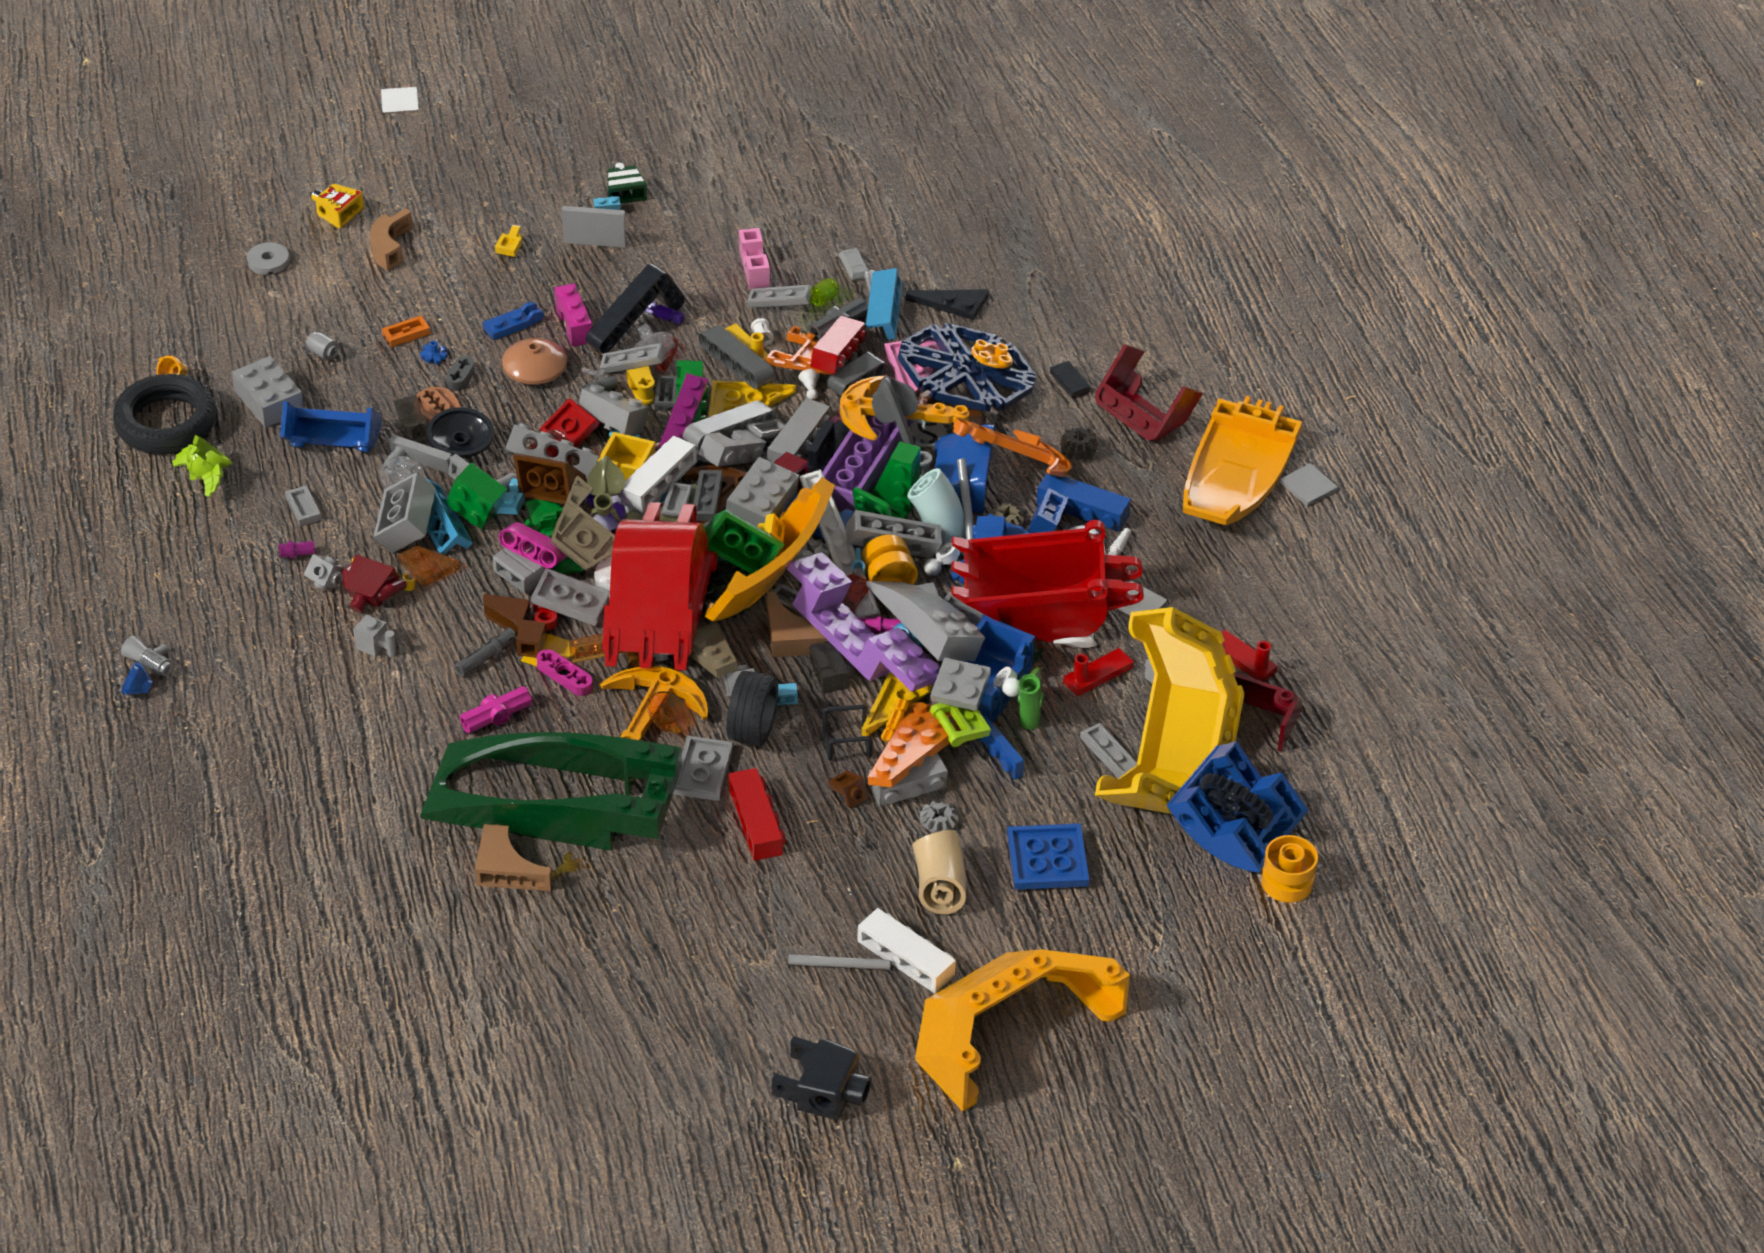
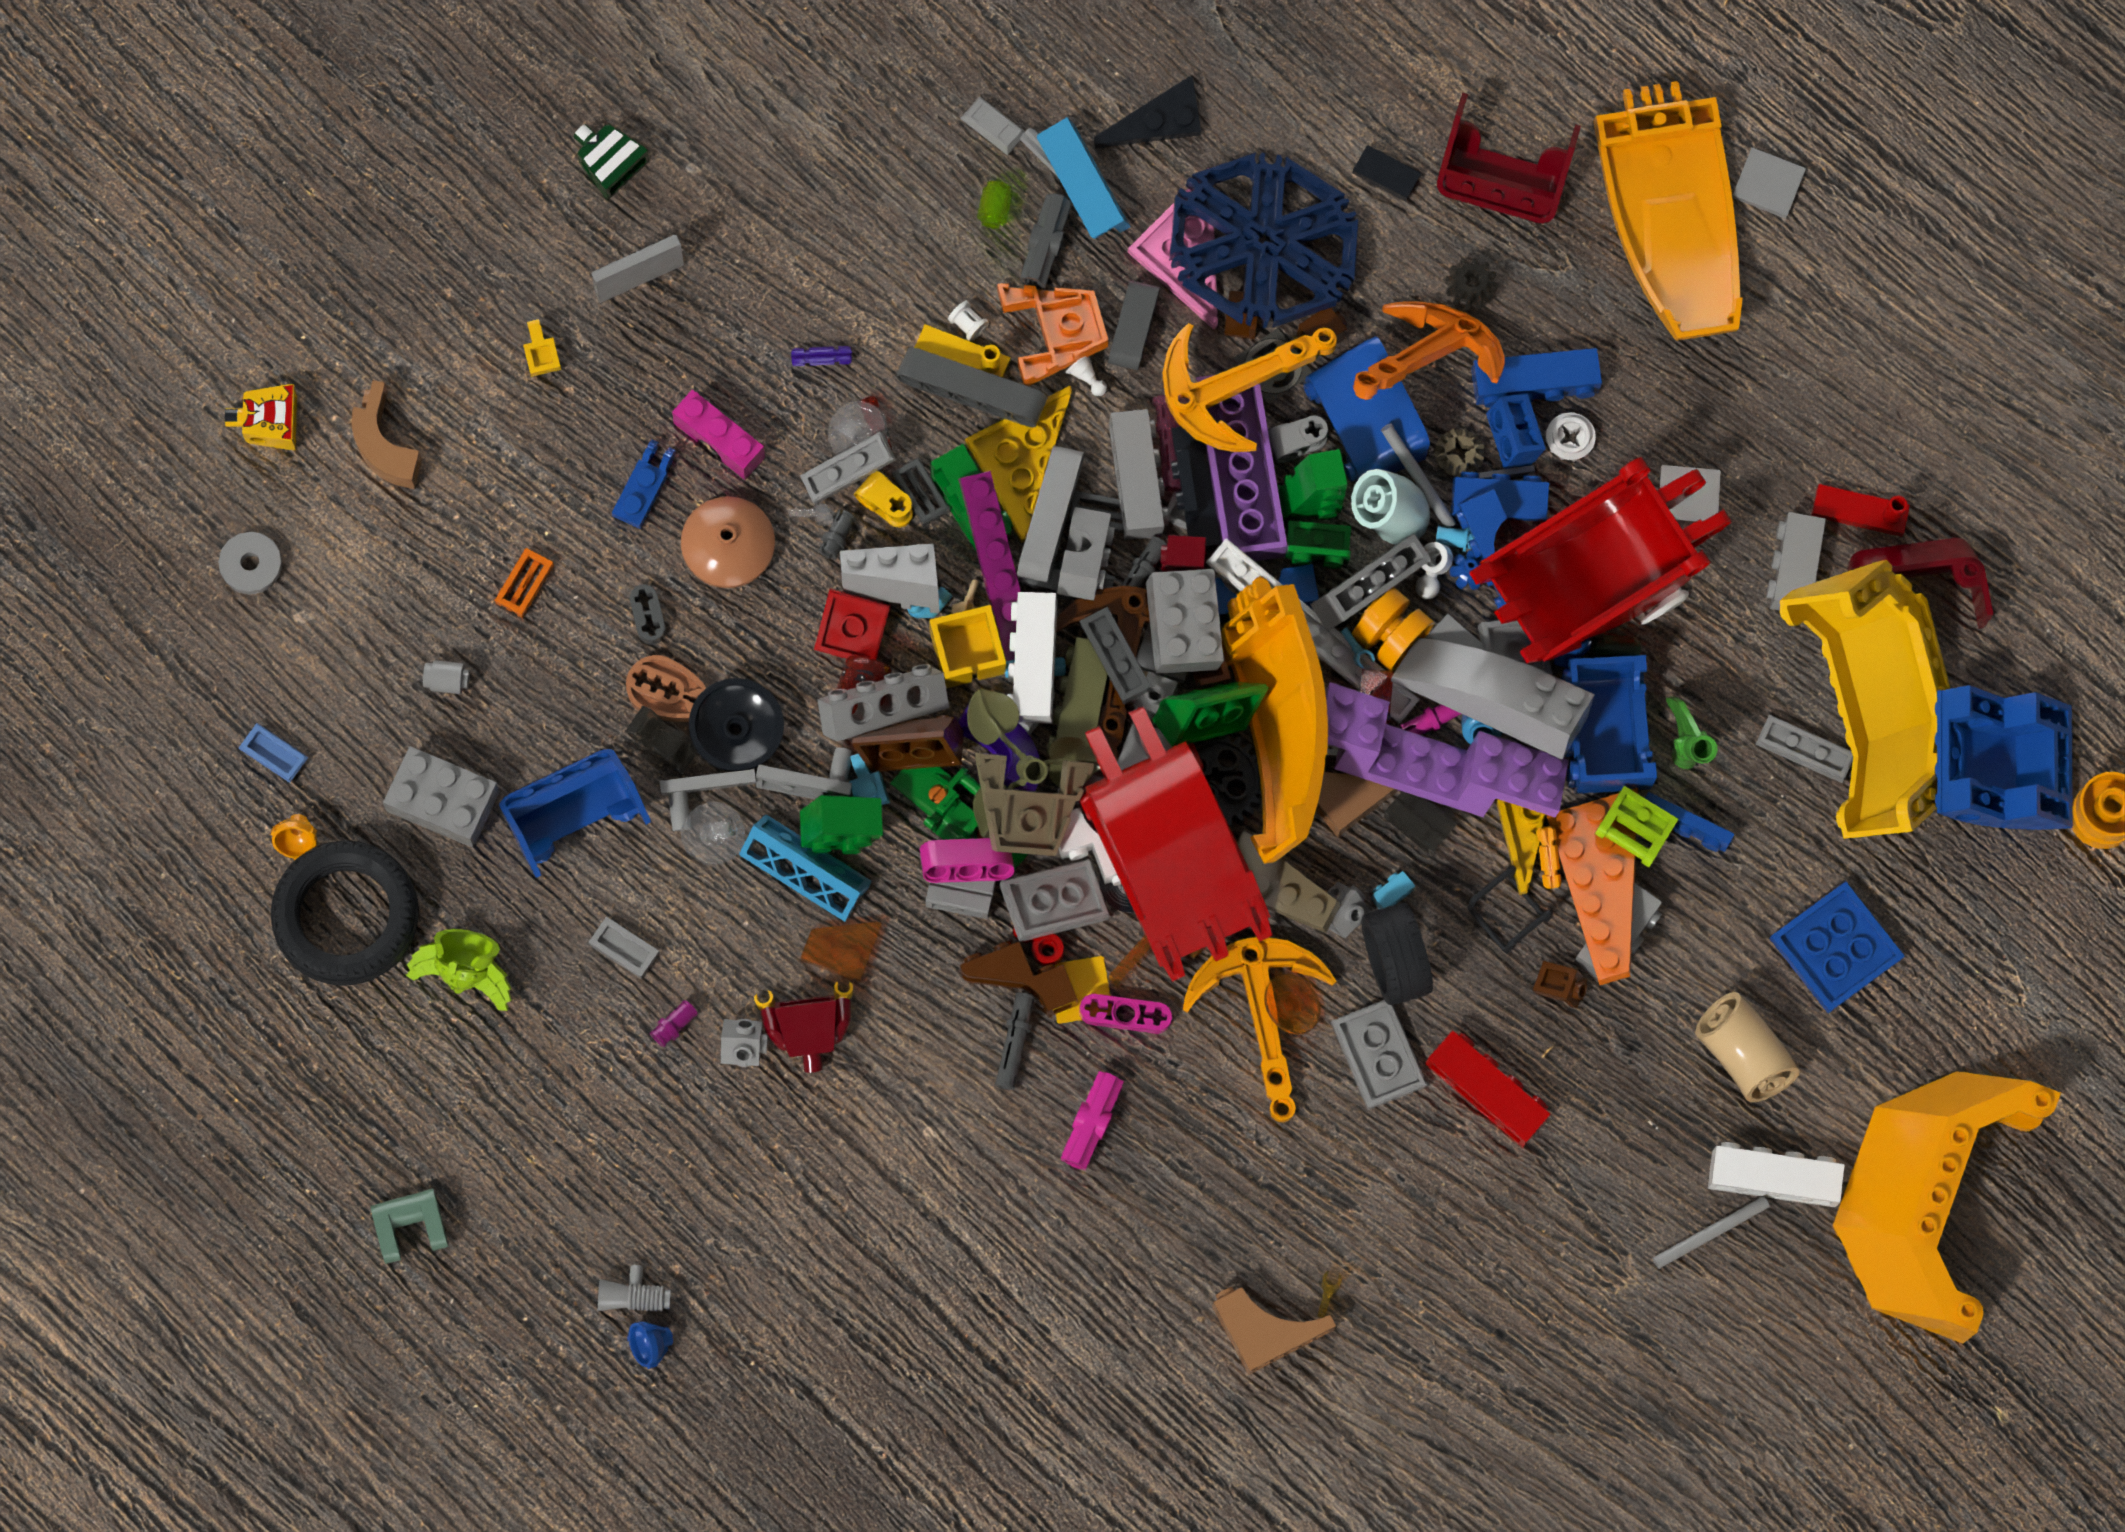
camera: 35 degrees left, 30 degrees up
(69, 559) = (403, 1212): none -> sand green connector
(198, 337) = (273, 752): none -> medium blue tile
(372, 637) = (871, 1103): light grey brick -> none
(399, 99) = (187, 164): white sticker -> none
(404, 512) = (772, 898): light grey brick -> none
(433, 352) = (587, 599): blue plant -> none
(578, 820) = (1360, 1106): dark green windscreen -> none
(607, 203) = (613, 209): medium azure piece -> none
(631, 304) = (805, 340): black beam -> none
(677, 496) = (1081, 681): light grey tile -> none
(753, 259) = (886, 215): bright pink arch -> none
(766, 429) = (1093, 484): light grey tile -> none
(773, 526) = (1235, 669): yellow tile -> none
(779, 296) = (948, 246): light grey tile -> none
(827, 1079) = (1818, 1406): black piece -> none
(838, 345) = (1090, 300): brick -> none
(893, 403) = (1242, 378): dark grey piece -> none
(940, 823) = (1671, 970): light grey gear -> none
(960, 684) = (1614, 784): light grey plate -> none
(992, 355) = (1285, 205): light orange dish -> none
(1007, 681) = (1667, 747): white plate -> none
(1090, 675) = (1717, 634): red piece -> none
(1118, 545) = (1616, 418): white animal -> none
(1236, 800) = (2016, 770): black gear -> none

